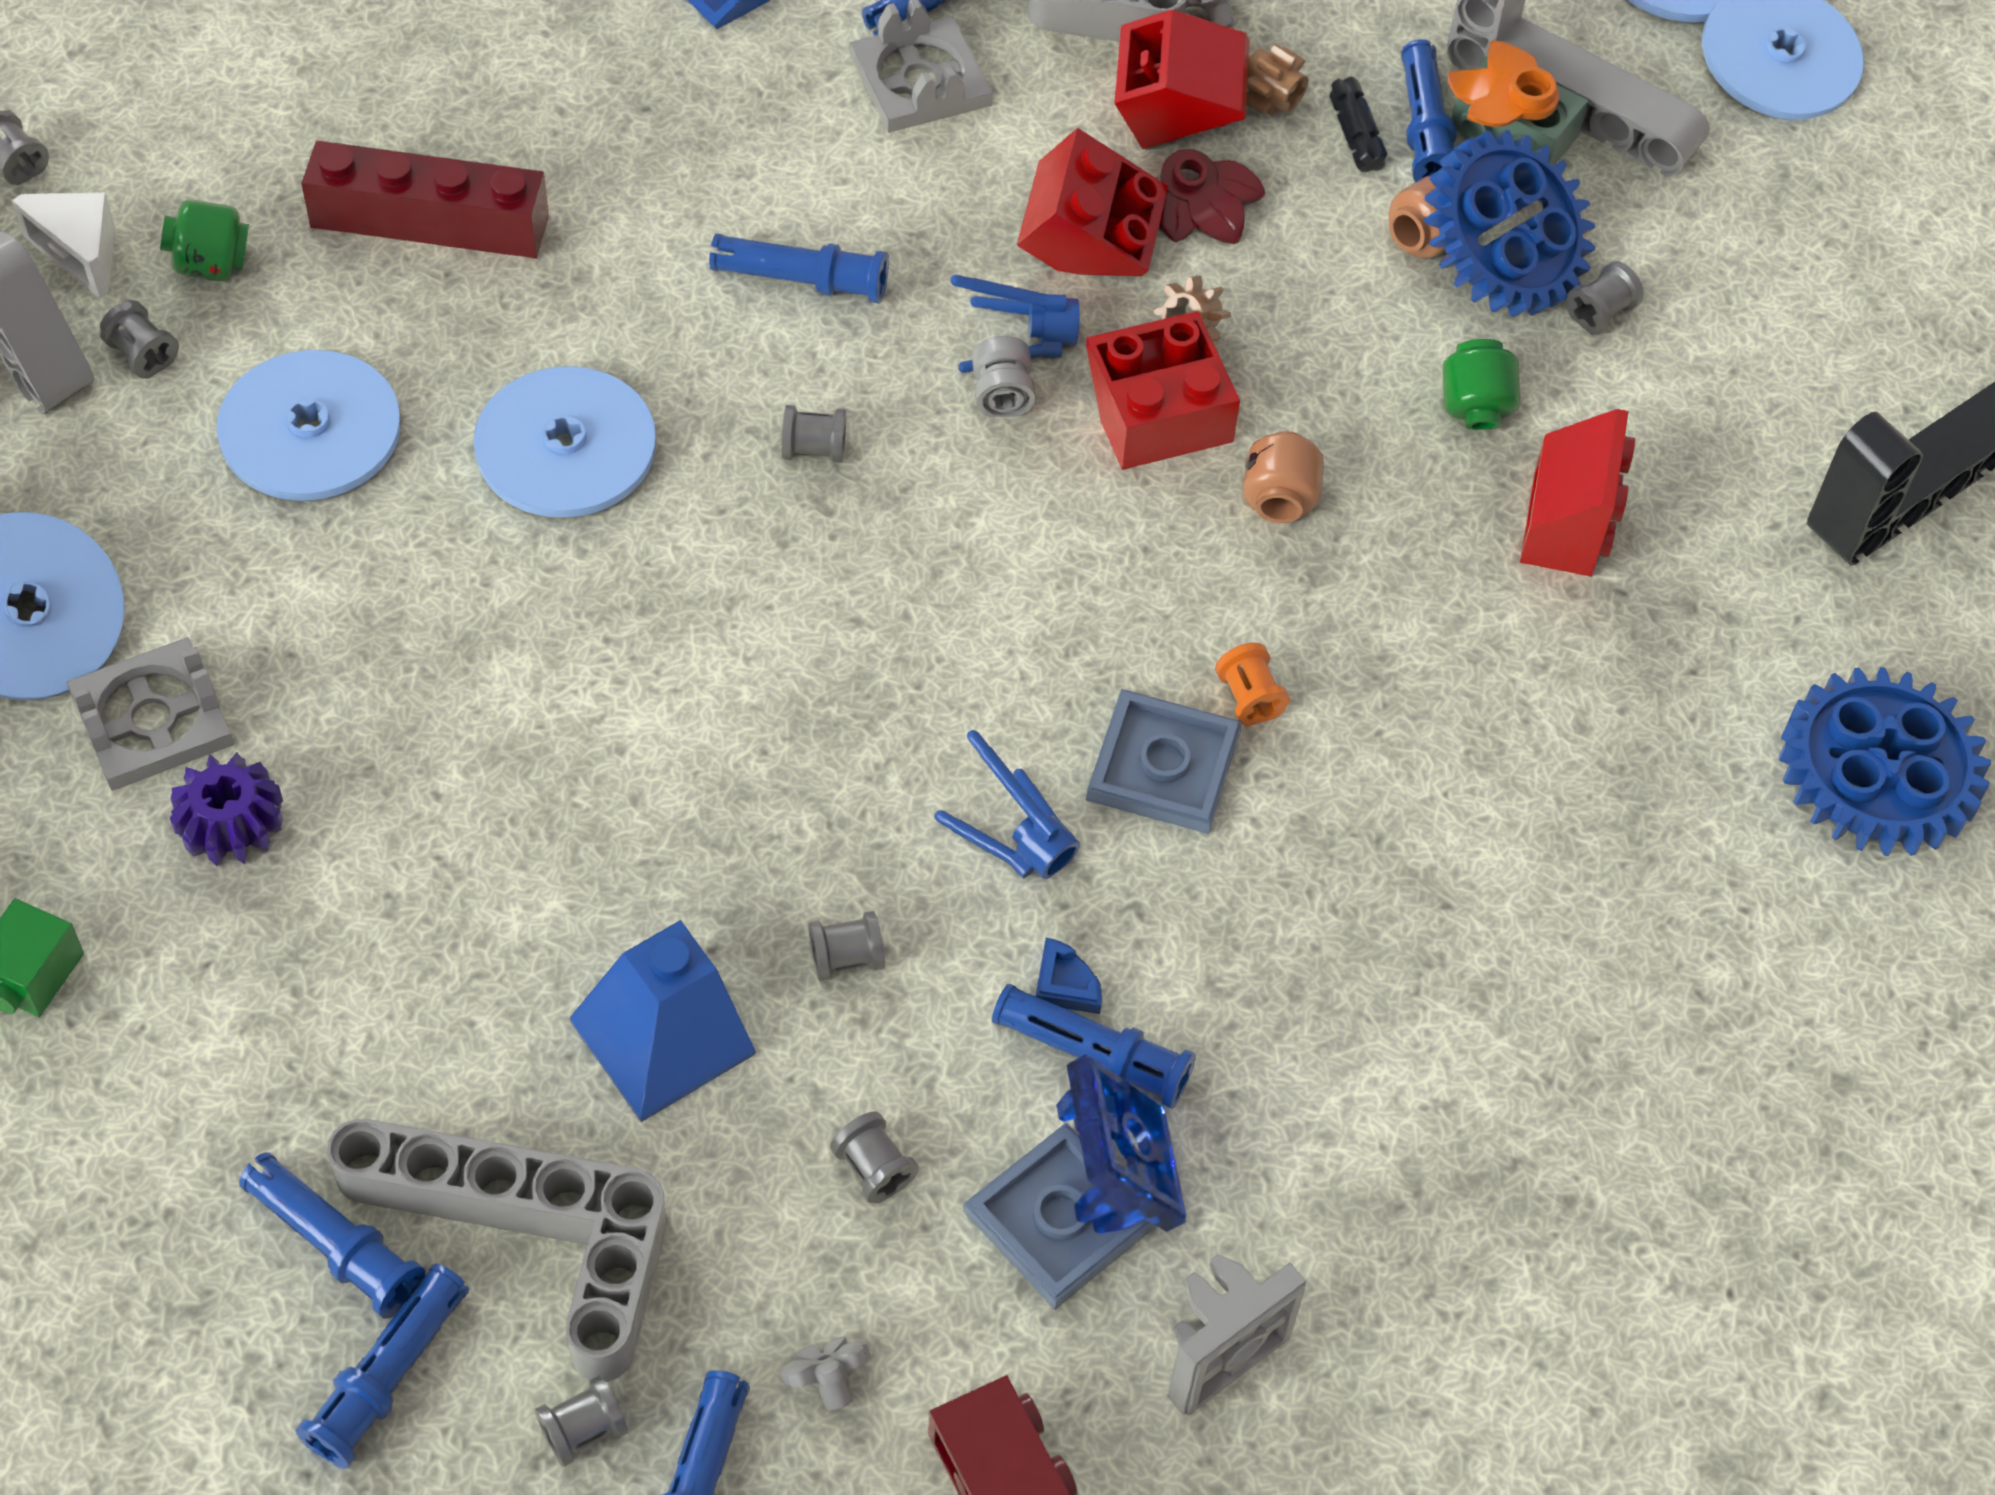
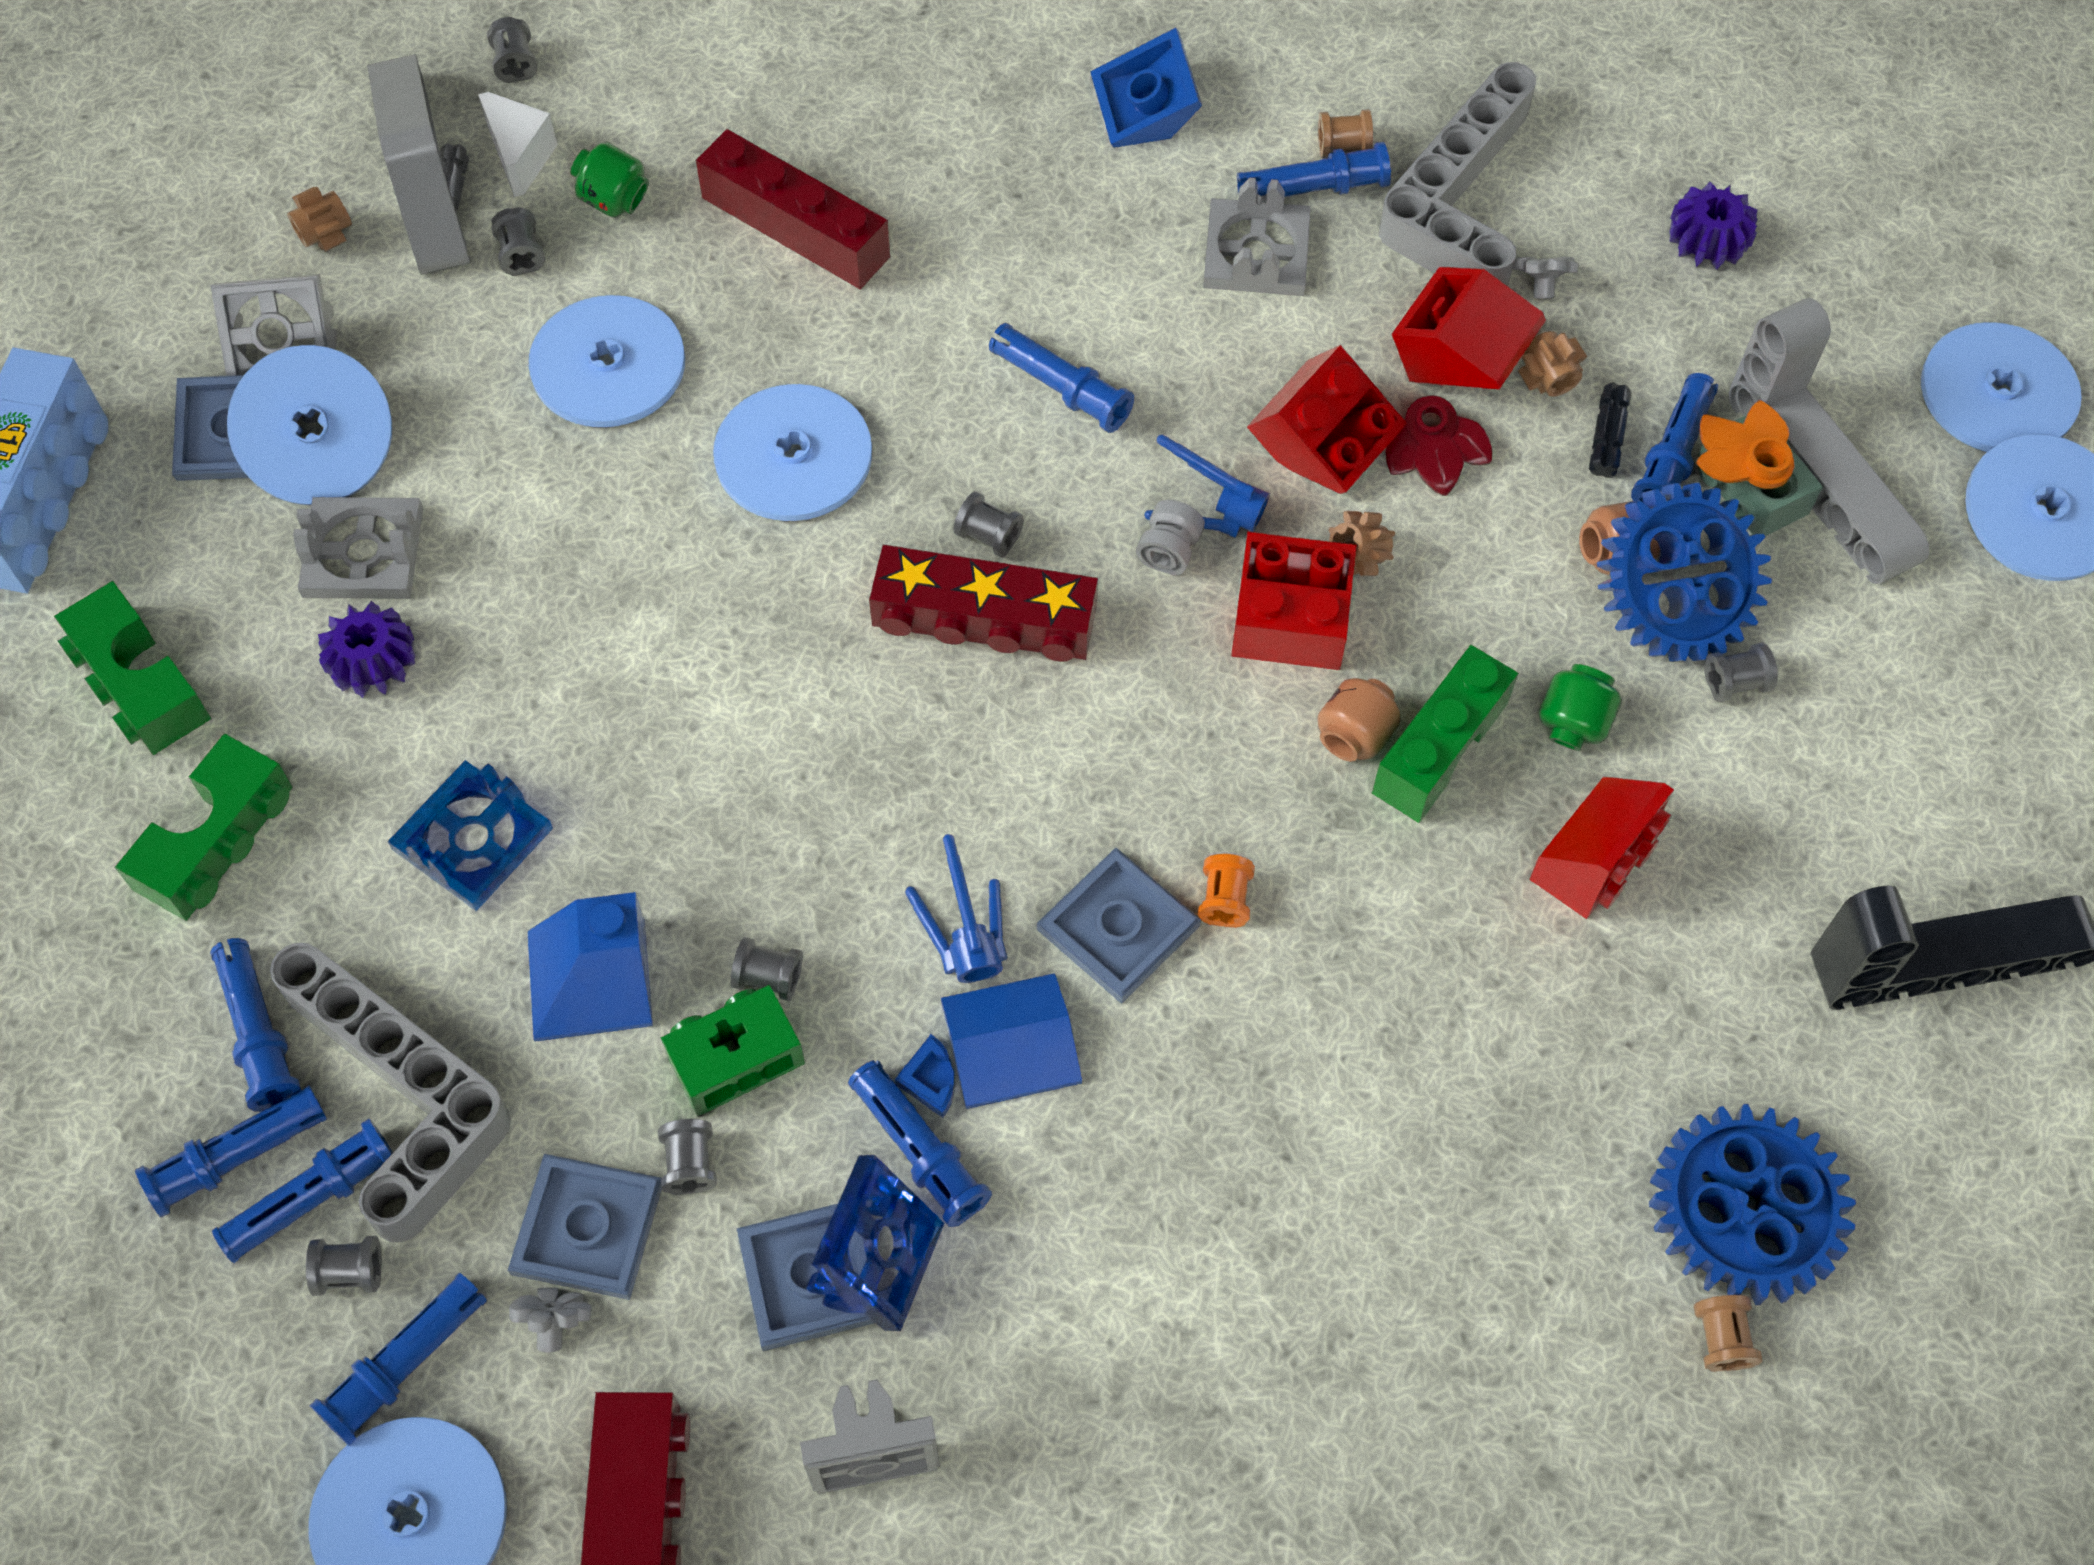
camera: 30 degrees right, 5 degrees up
(155, 1111) = (185, 868): none -> green arch
(446, 990) = (466, 782): none -> clear blue piece
(504, 1333) = (332, 1174): none -> blue pin
(807, 1272) = (586, 1226): none -> sand blue tile
(854, 1067) = (715, 1075): none -> green brick
(856, 509) = (983, 603): none -> dark red brick
(1126, 911) = (1011, 1040): none -> blue slope
(1374, 457) = (1438, 736): none -> green arch
(1928, 881) = (1727, 1333): none -> medium nougat bush

